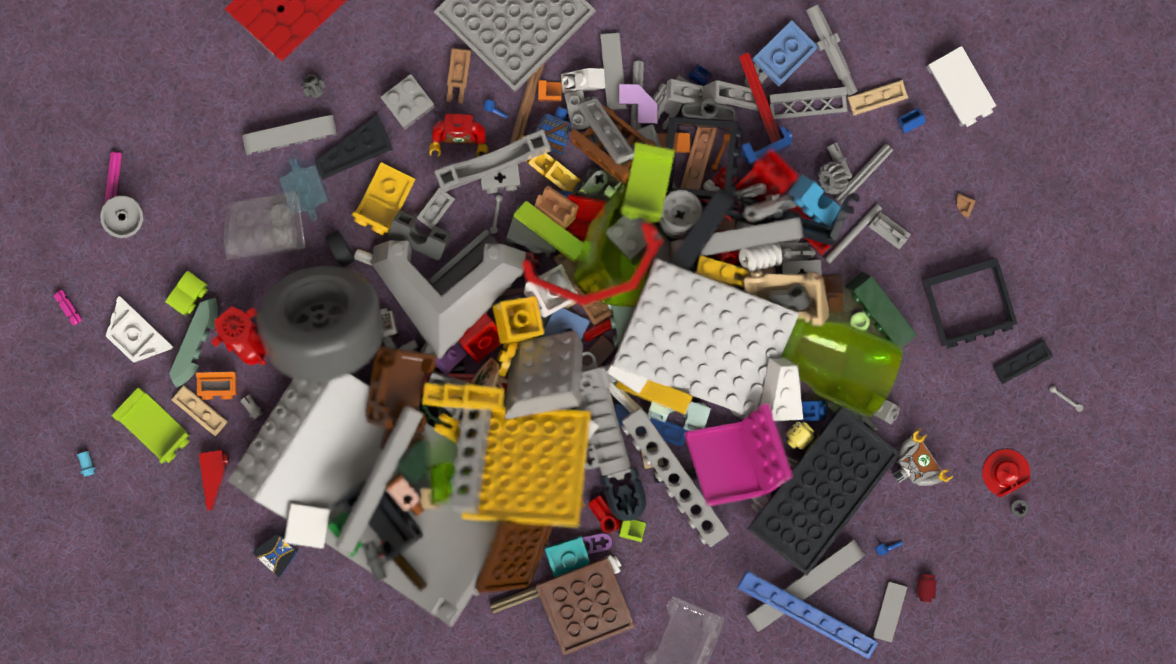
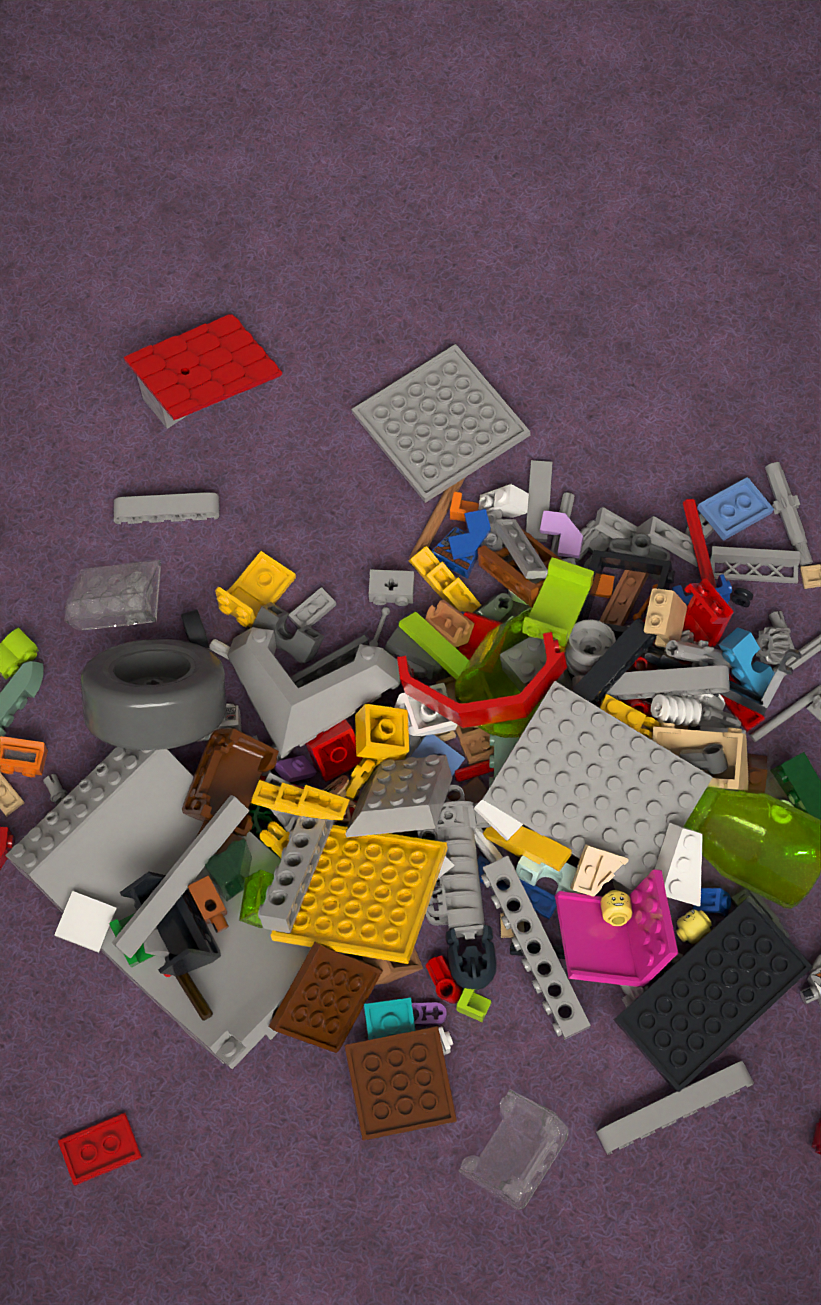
camera: 15 degrees right, 20 degrees down
(240, 335) = (59, 704): red helmet -> none
(276, 554) = (45, 958): black torso -> none
(309, 187) = (175, 565): clear light blue plate -> none
(313, 86) = (204, 462): dark grey gear -> none
(359, 147) = (243, 533): black wing -> none
(373, 561) = (156, 979): dark grey pin -> none
(407, 102) = (304, 494): light grey brick -> none
(426, 499) = (233, 915): tan plate -> none
(458, 72) = (366, 475): medium nougat hinge -> none
(460, 130) = (356, 530): red torso -> none
(489, 107) = (393, 515): blue hand -> none
(508, 156) = (350, 569): light grey arch -> none
(514, 599) = (316, 1064): dark tan axle -> none
(560, 129) = (467, 544): none -> blue tile
(700, 75) = (634, 517): clear blue slope -> none
(714, 407) = (595, 869): none -> wing
(735, 434) = (616, 908): none -> light yellow head
(740, 183) = (665, 616): none -> tan panel
(801, 135) = (742, 597): none -> black bush
(807, 614) = (673, 1140): plate -> none
(882, 549) = (775, 1080): blue hand -> none
(888, 412) = (801, 916): light grey bracket -> none
(890, 612) = (776, 1160): light grey tile -> none

